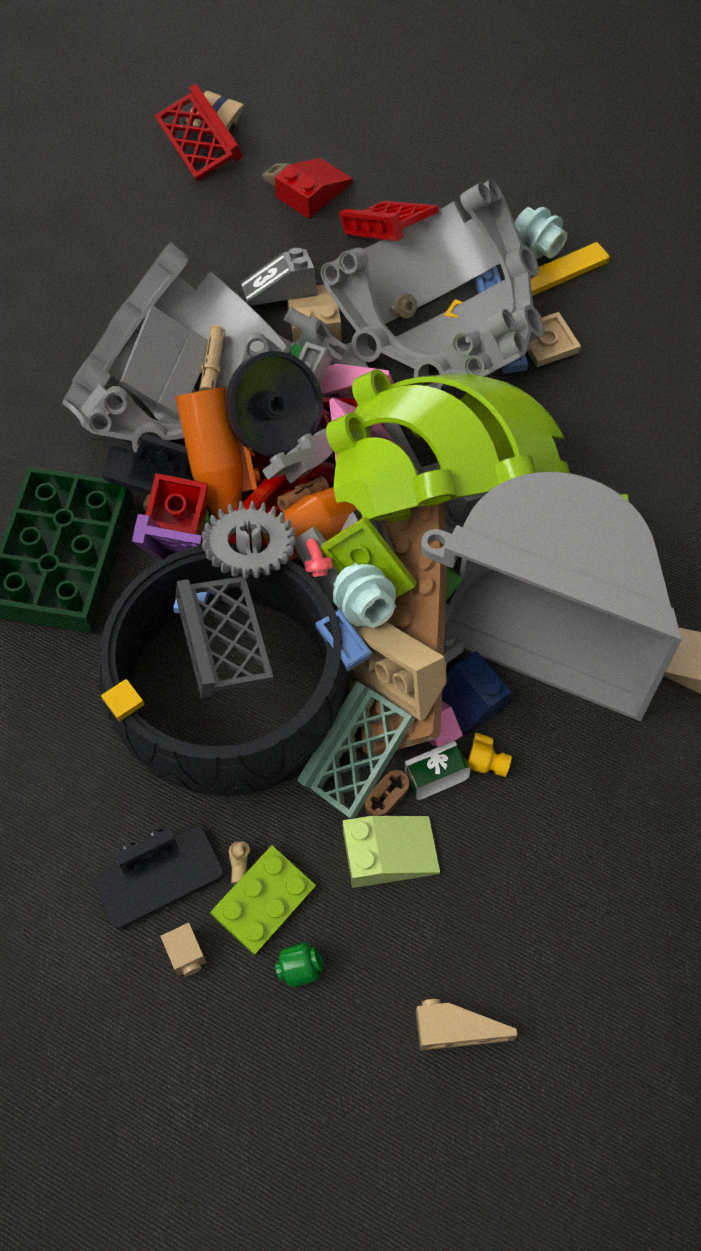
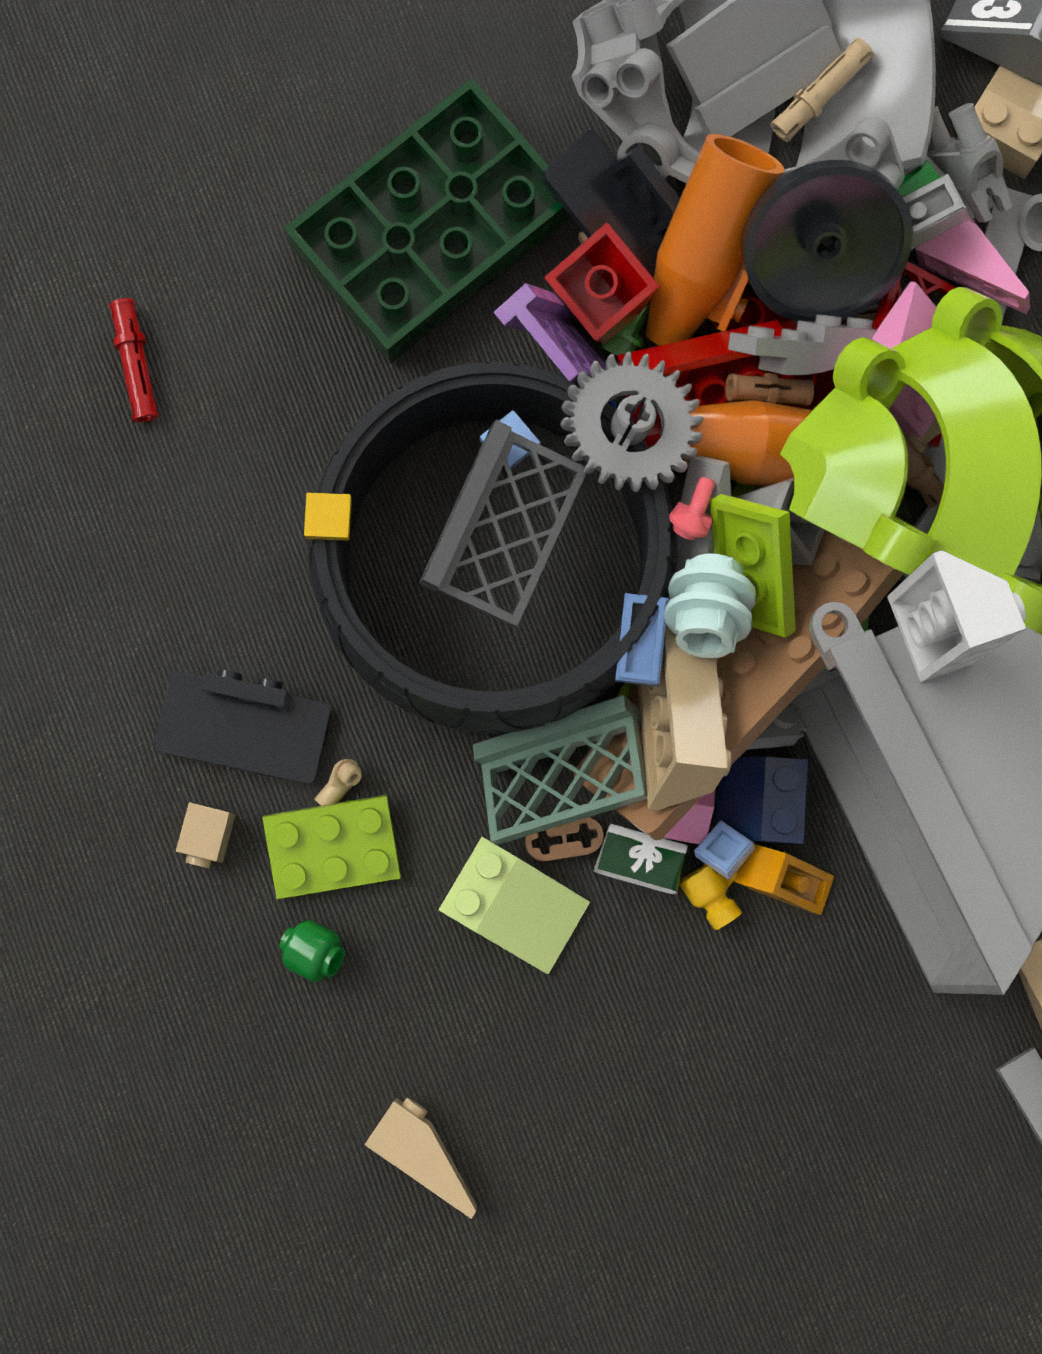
camera: 40 degrees right, 20 degrees up
(475, 727) = (724, 849): none -> light blue tile
(491, 471) = (954, 614): none -> white slope
(516, 721) = (785, 879): none -> light orange slope

